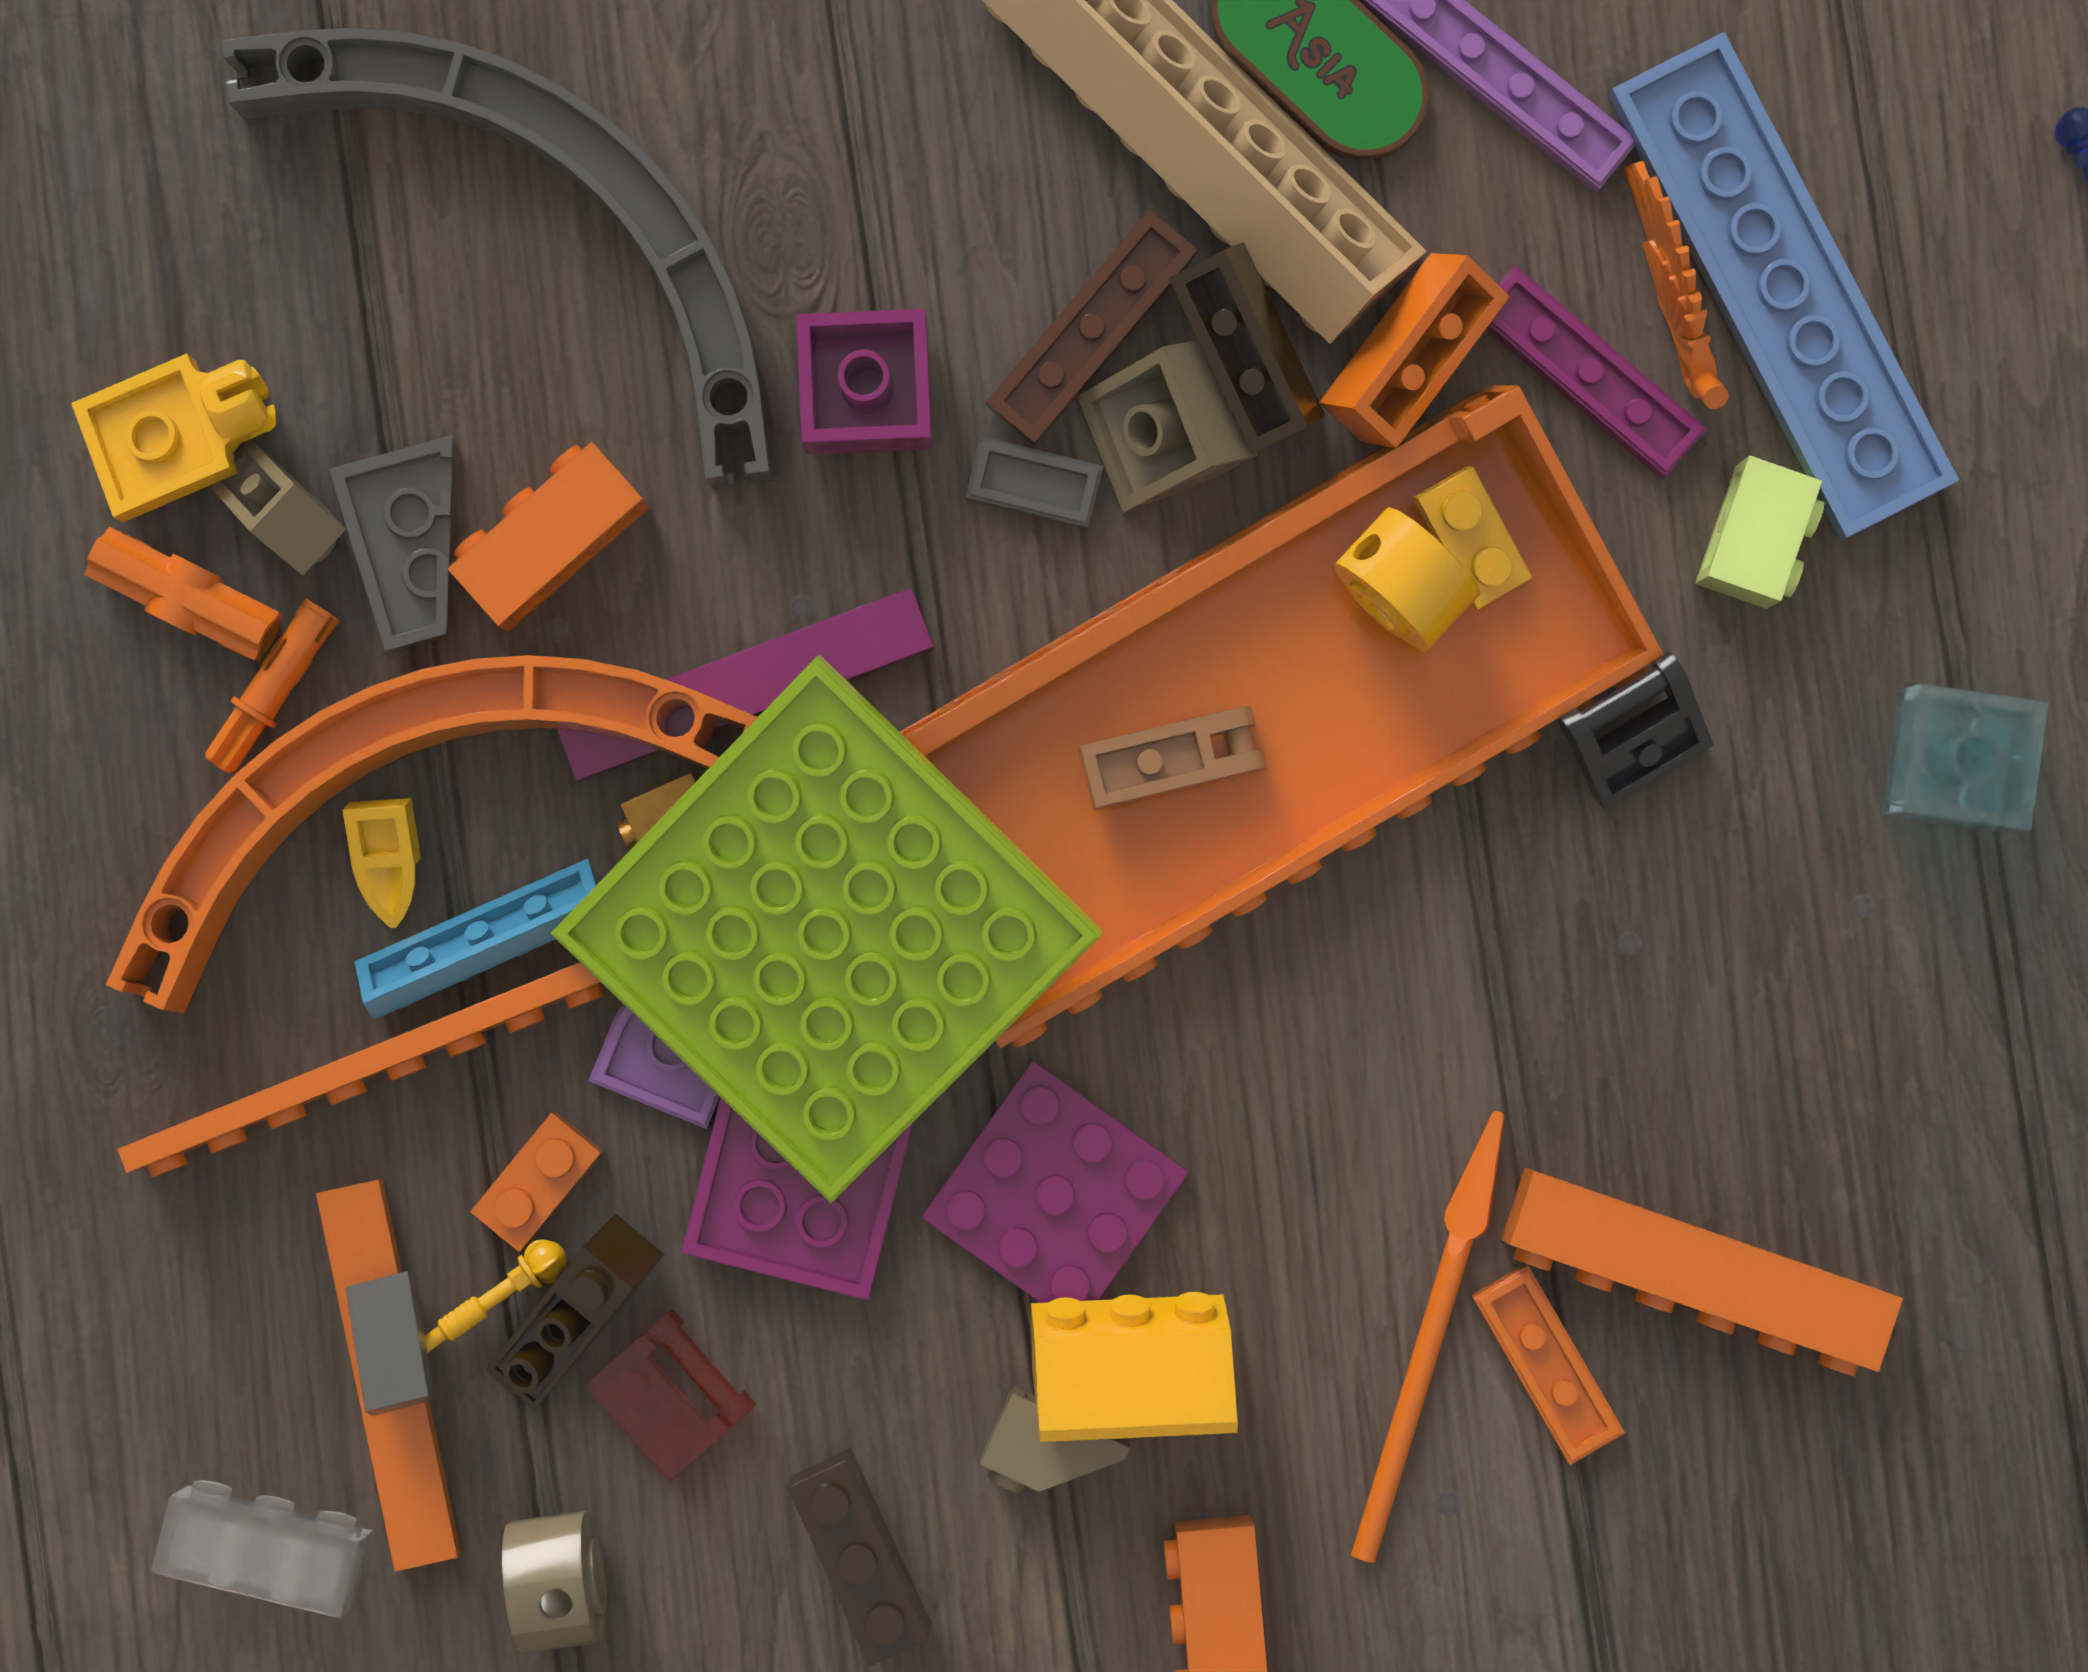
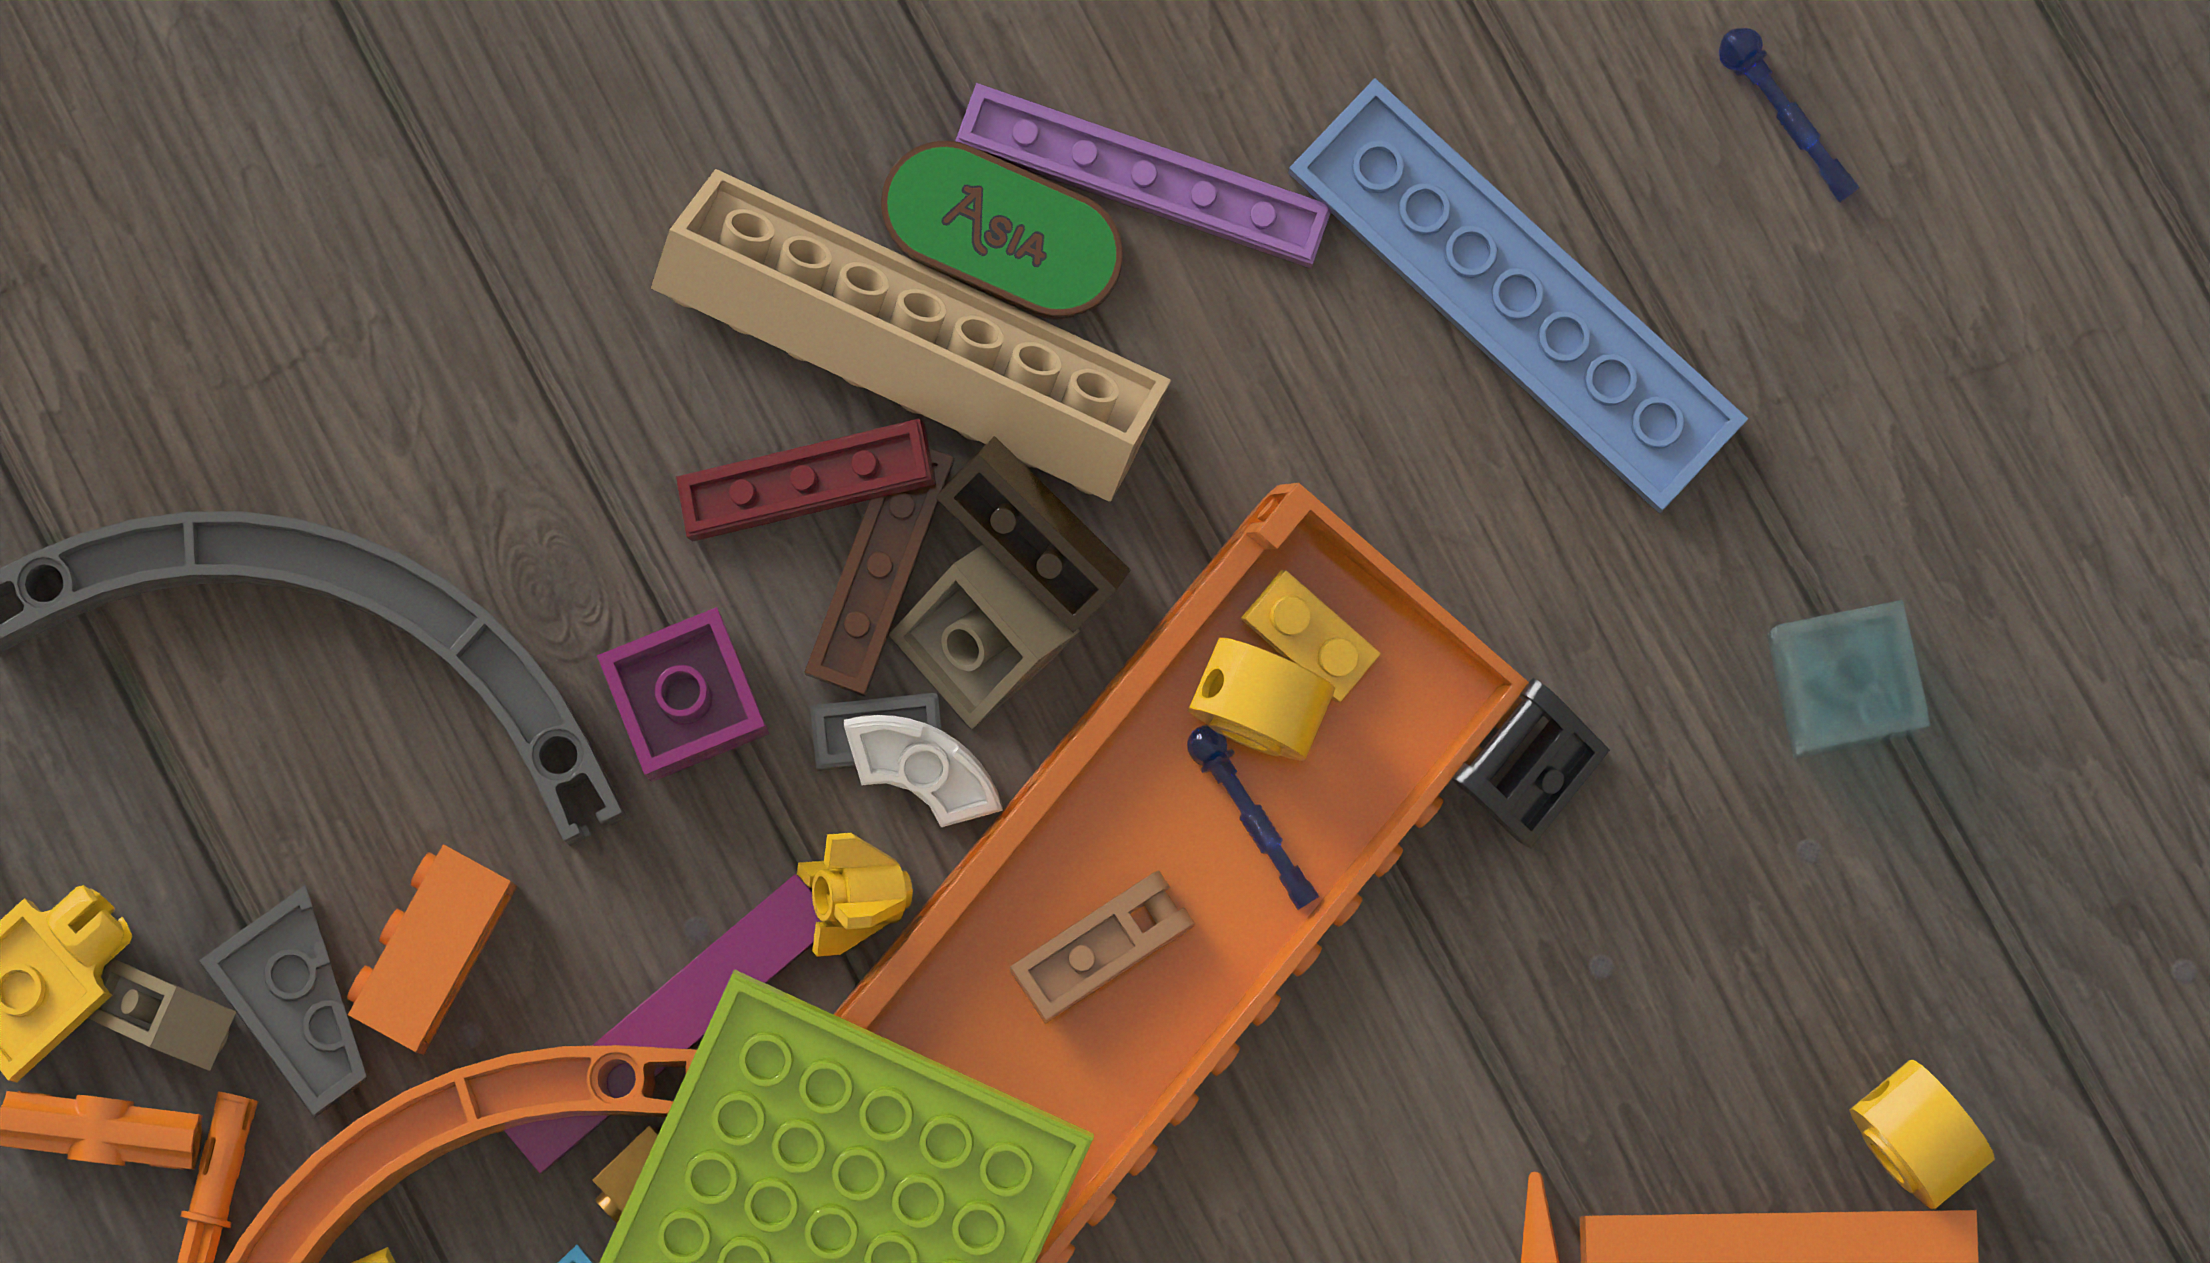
camera: 20 degrees left, 5 degrees down
(961, 624) = (853, 892): none -> yellow brick
(1052, 222) = (805, 480): none -> dark red tile
(1067, 526) = (924, 762): none -> white tile
(1339, 611) = (1211, 752): none -> clear blue piece
(1414, 349) = (1191, 479): orange brick -> none
(1593, 375) = (1365, 439): magenta tile -> none
(1676, 287) = (1418, 336): orange animal -> none
(1761, 533) = (1581, 534): yellowish green brick -> none
(1878, 1209) = (1921, 1134): none -> yellow piece

